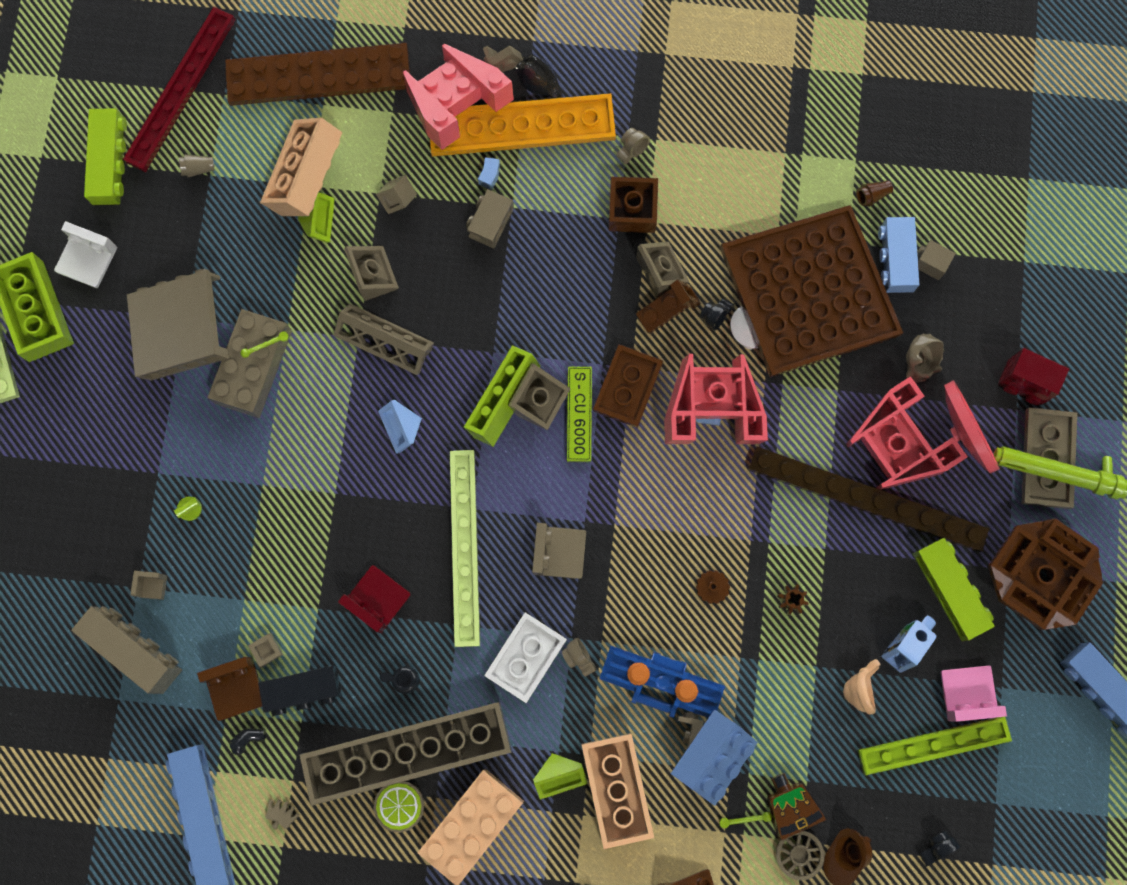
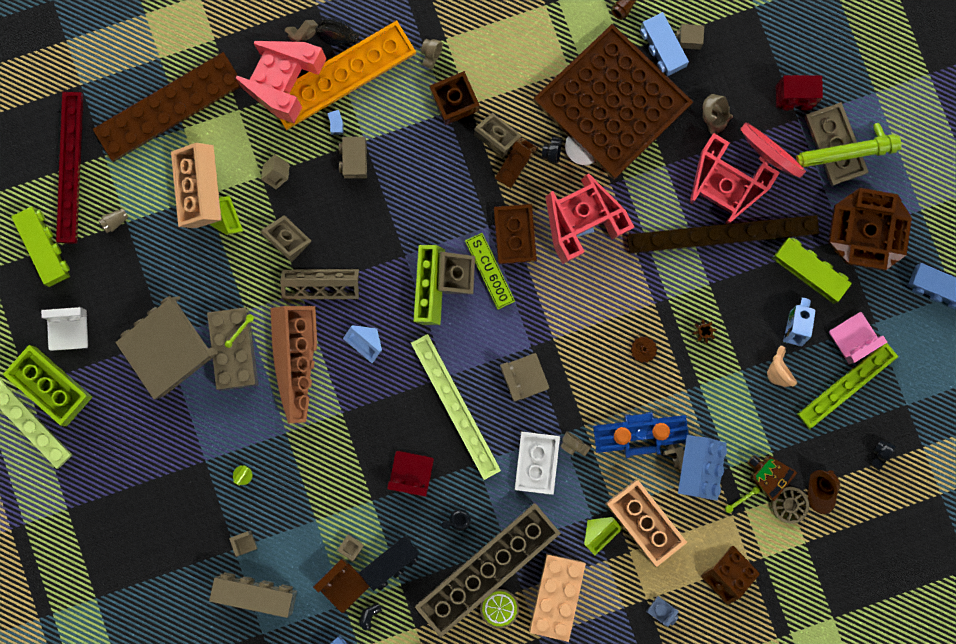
camera: 30 degrees left, 5 degrees up
(314, 400) = (293, 351): none -> nougat wedge

